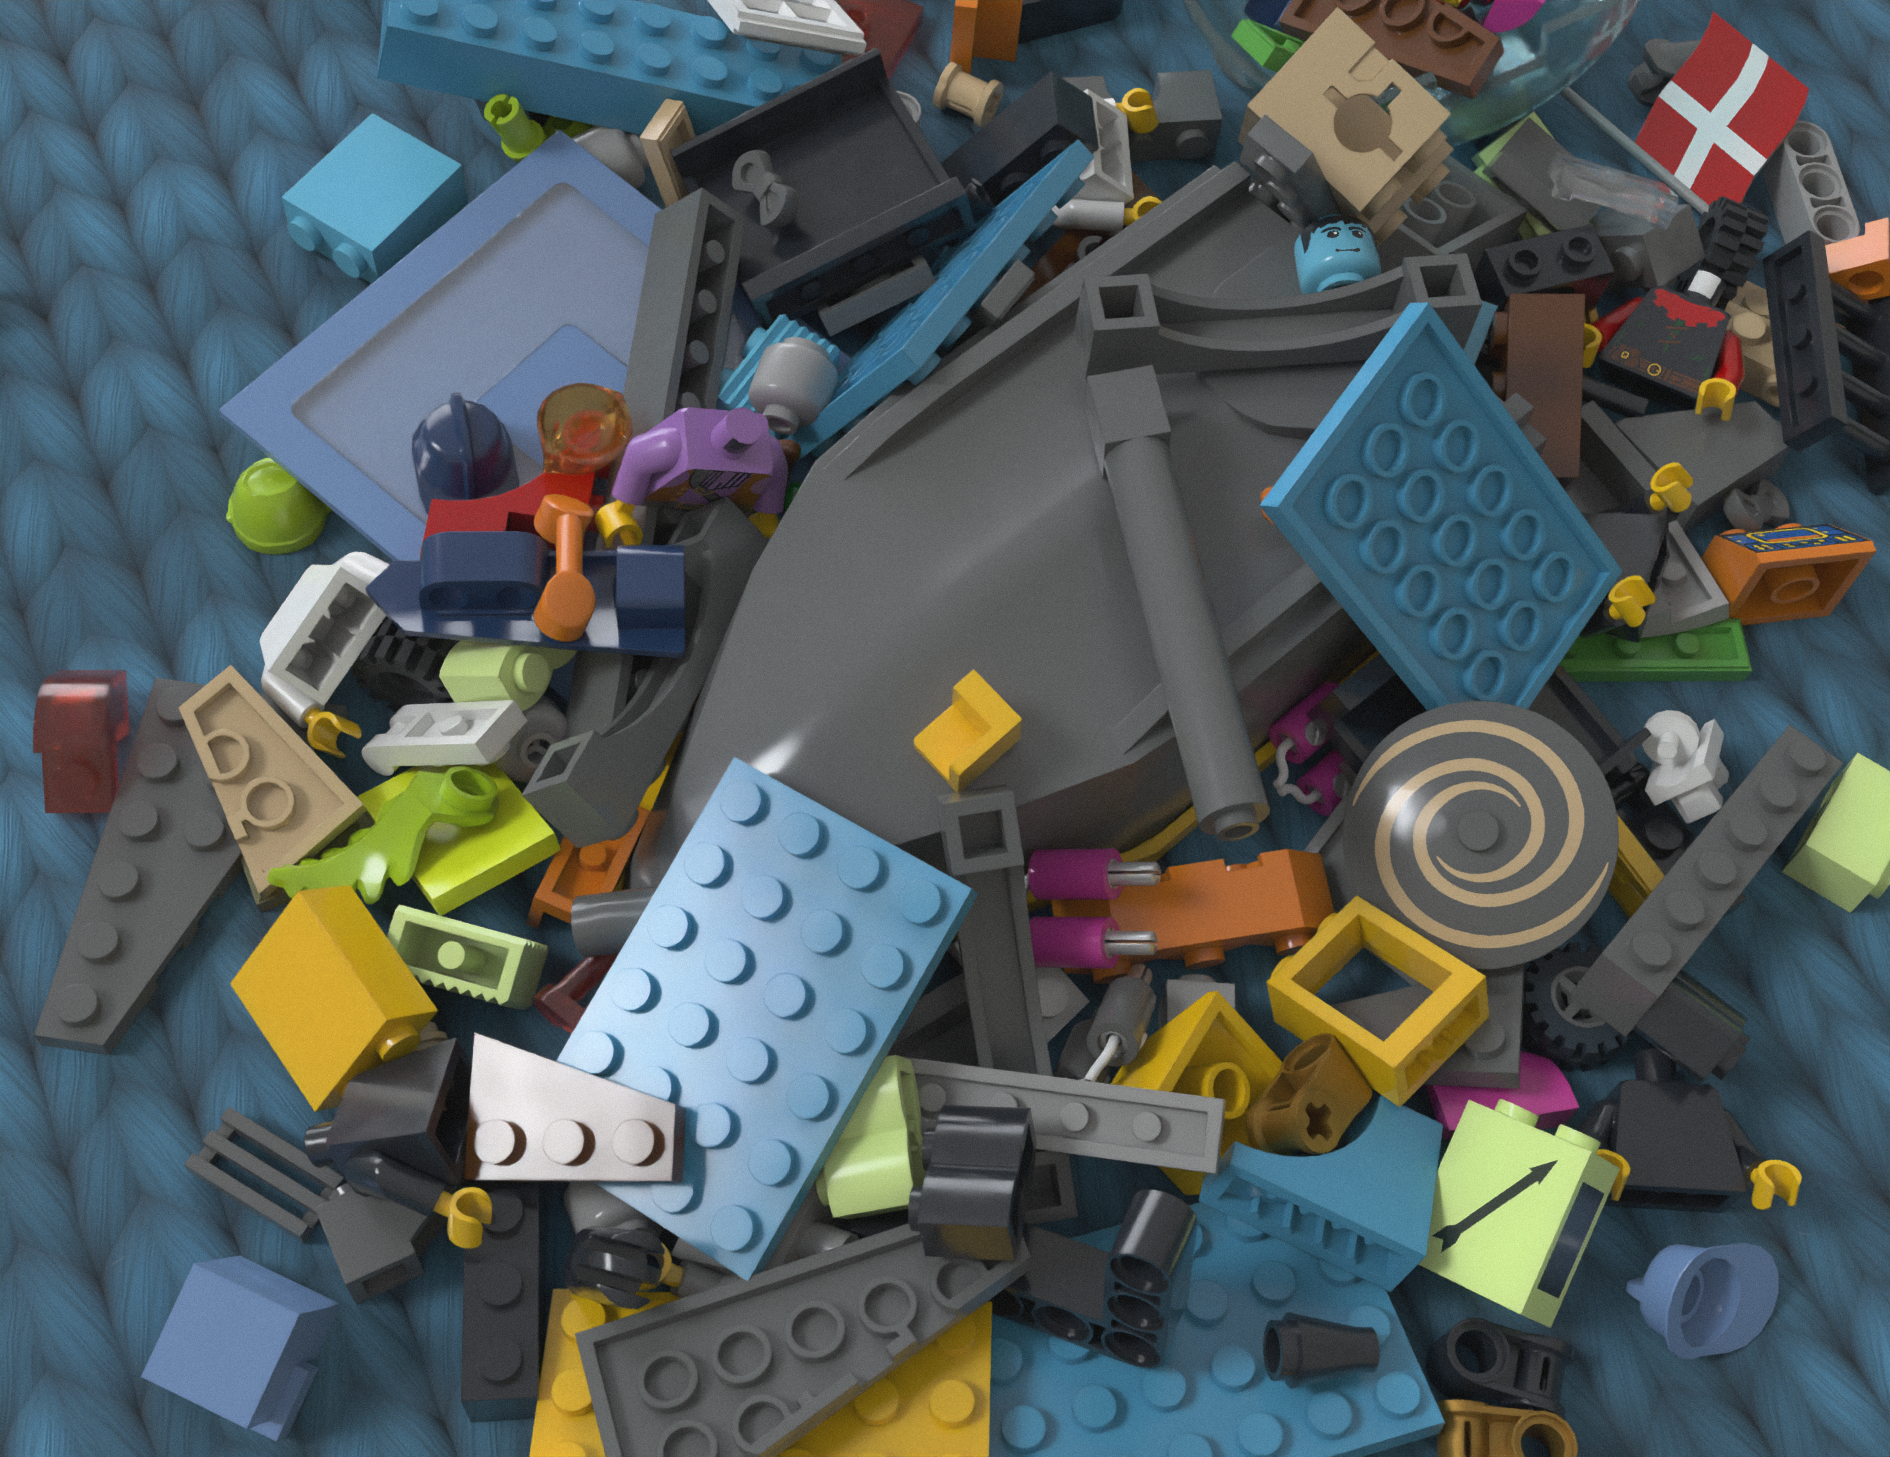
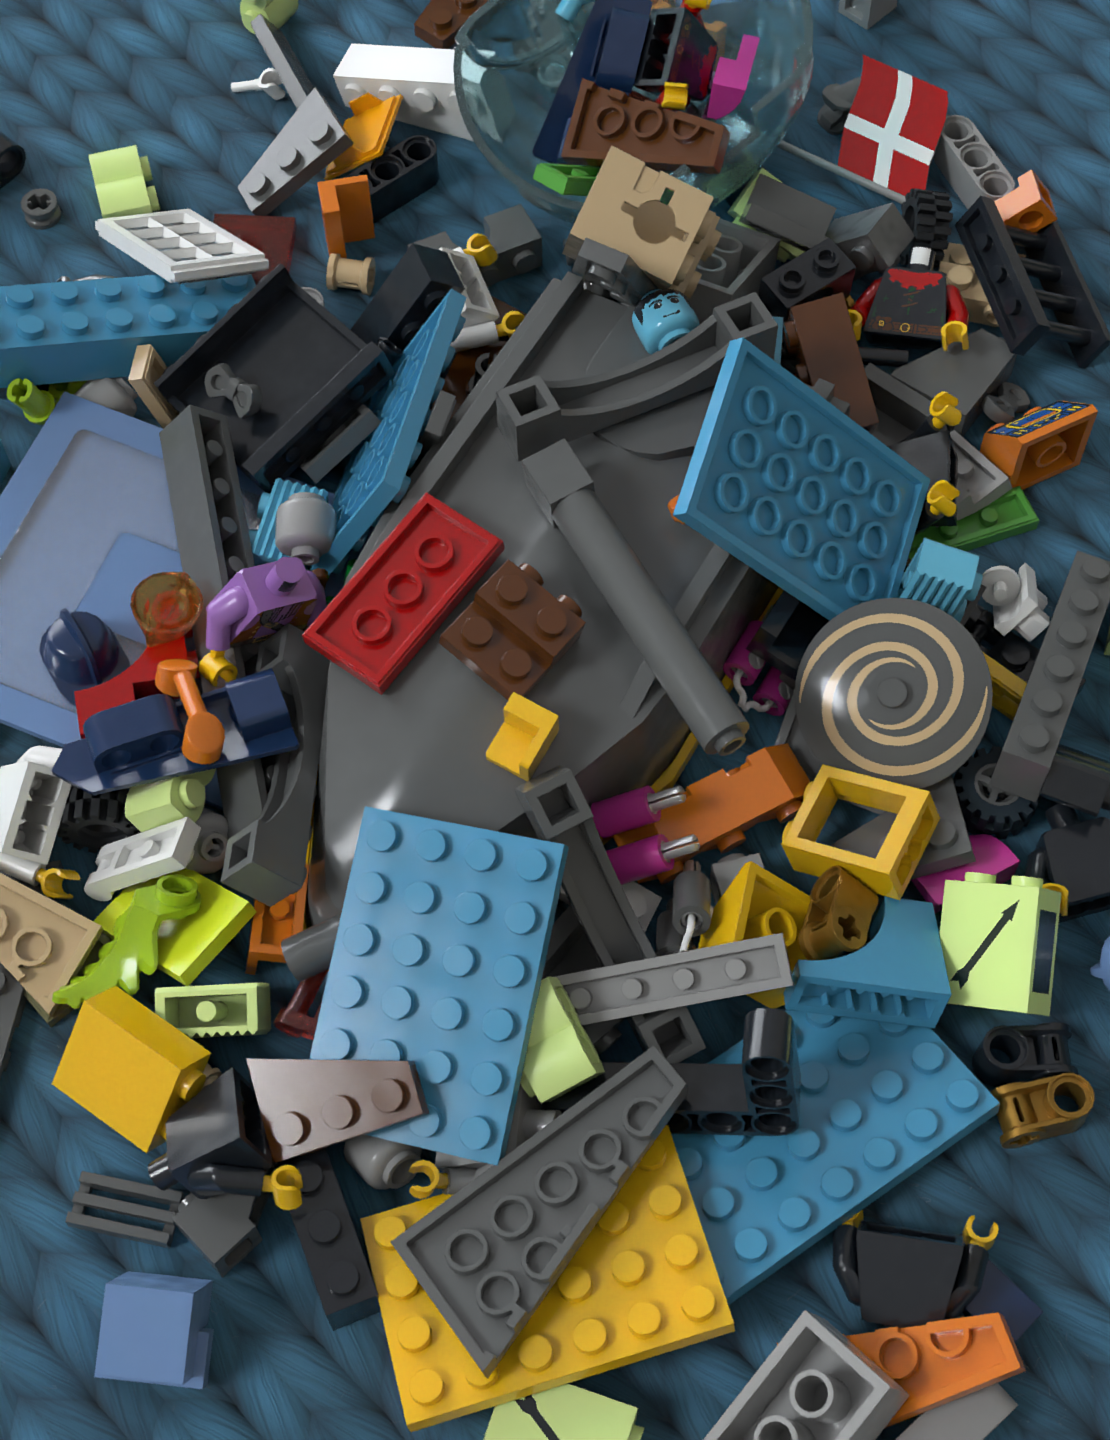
camera: 10 degrees left, 0 degrees up
(611, 1265) = (399, 1186): black arm -> none
(880, 500) = (403, 593): none -> red tile
(974, 1182) = (631, 1045): black brick -> none
(1004, 591) = (514, 630): none -> reddish brown plate
(1317, 1350) = (897, 1083): black cone -> none
(1595, 702) = (942, 578): none -> medium azure brick
(1613, 189) = (835, 208): clear plate -> none

